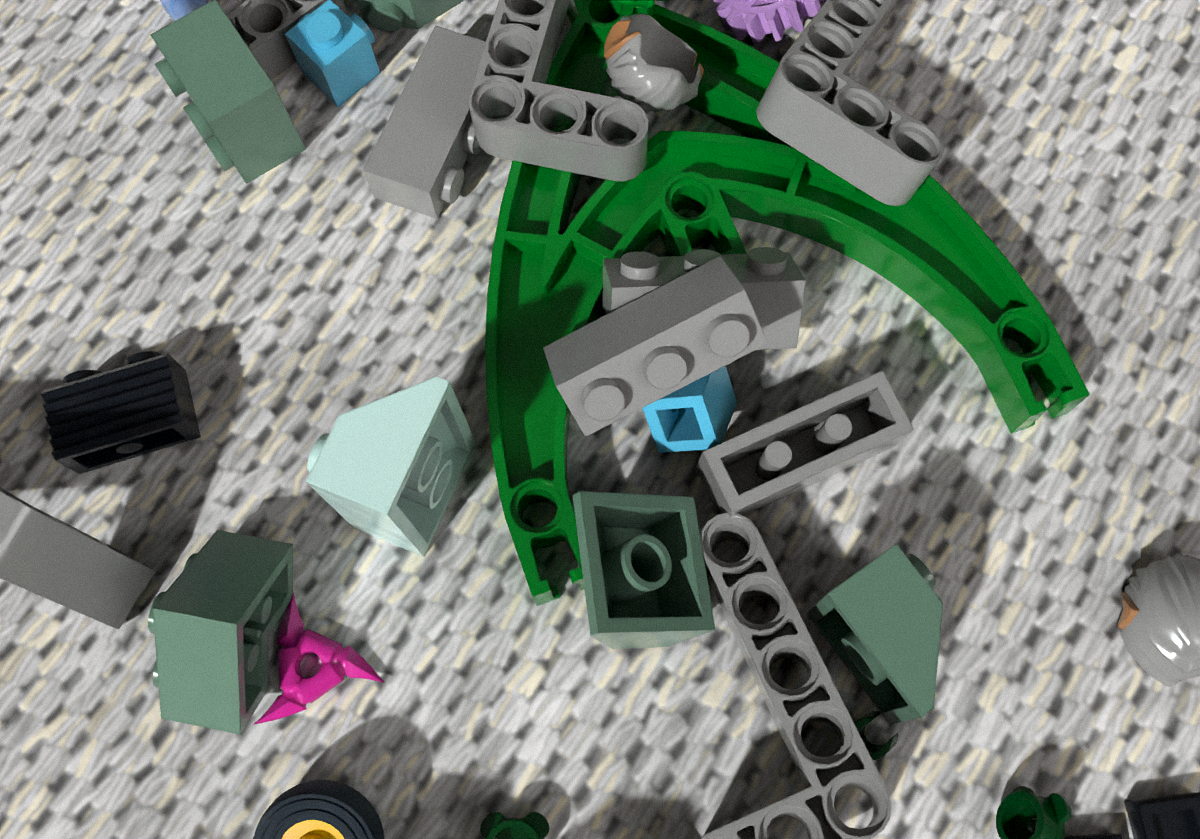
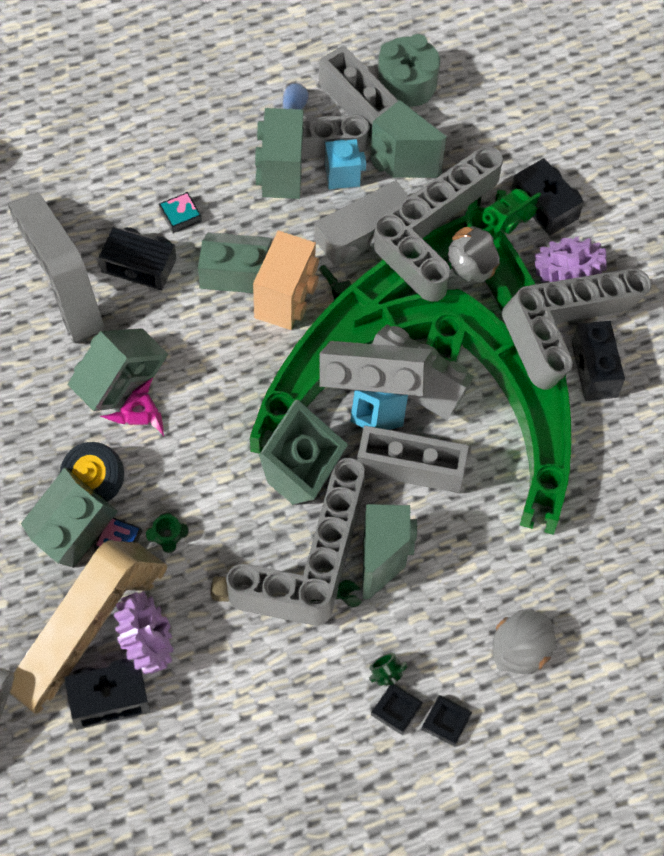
camera: 30 degrees right, 10 degrees down
(136, 291) = (180, 212): none -> tile
(281, 316) = (231, 261): none -> sand green slope
(390, 292) = (285, 280): none -> light nougat brick
(395, 463) = (234, 346): light aqua slope -> none
(474, 251) = (336, 287): none -> dark green hand
(939, 98) = (598, 360): none -> black brick

